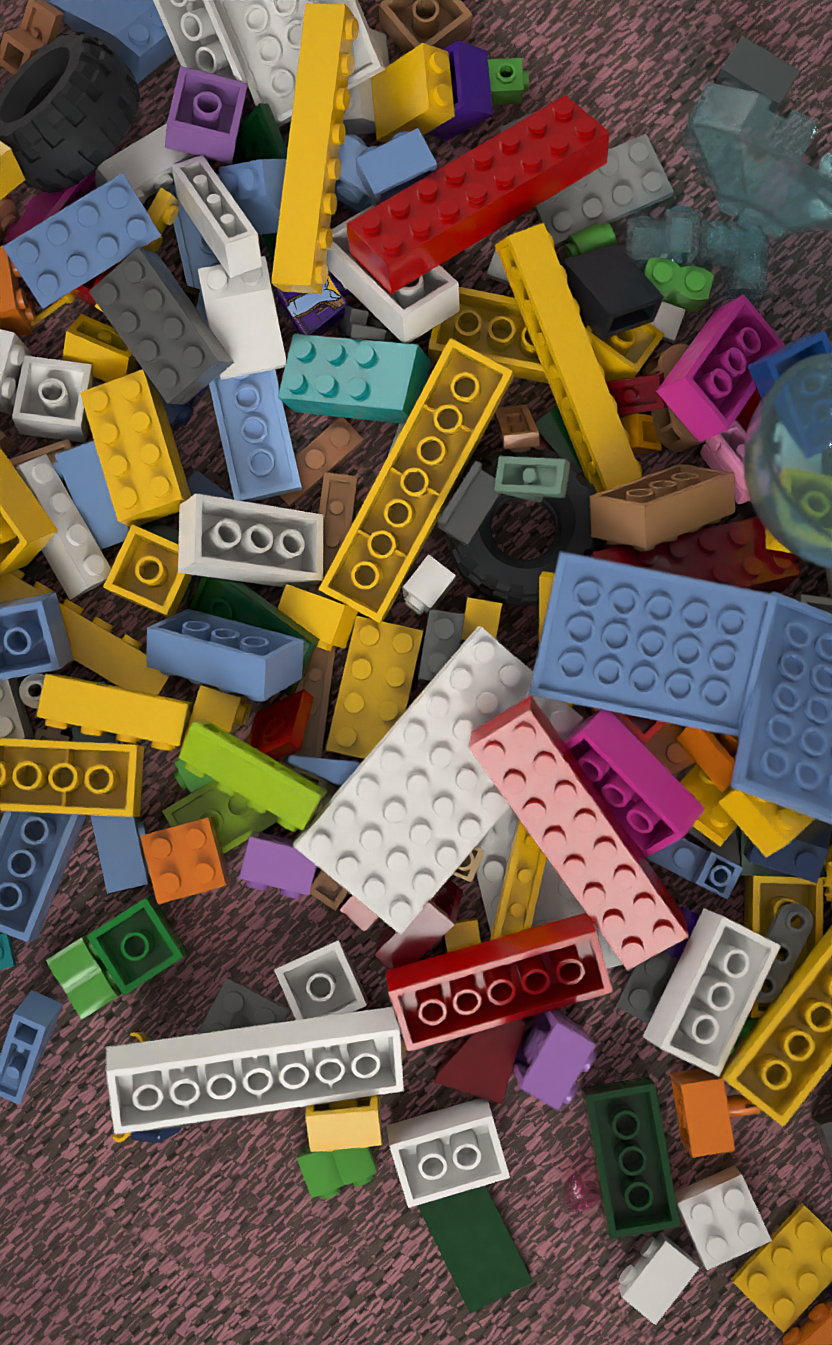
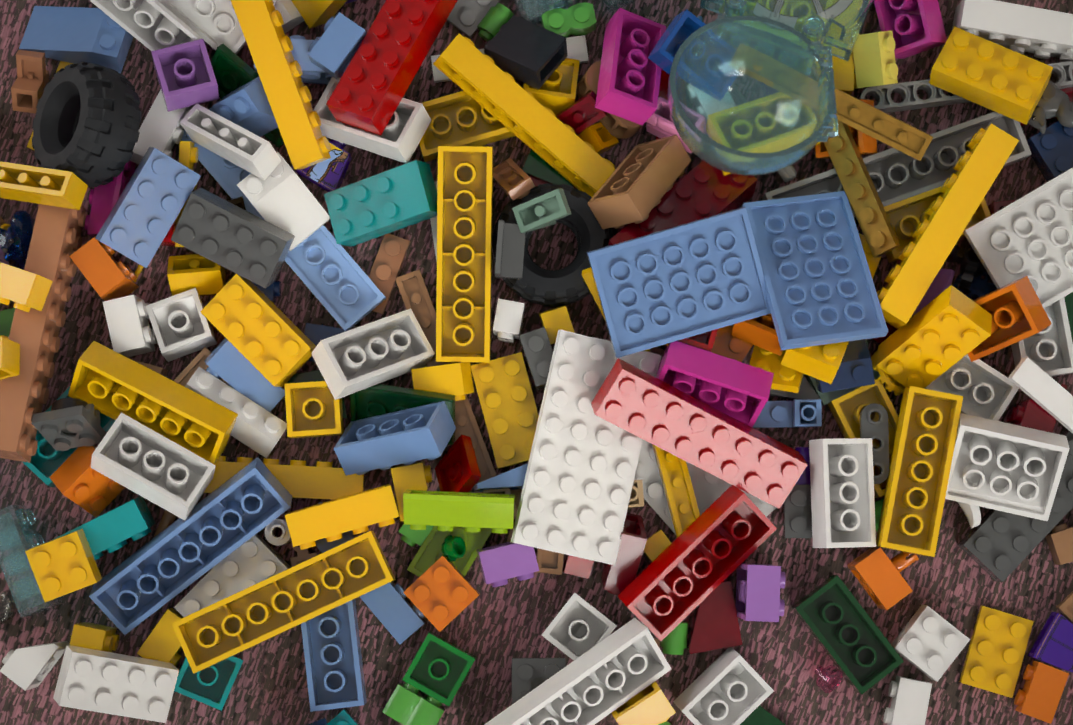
camera: 25 degrees left, 0 degrees up
(227, 814) = (453, 547): none -> green plate
(356, 326) = (369, 166): dark grey plate -> none
(427, 1058) = (676, 641): none -> bright green brick

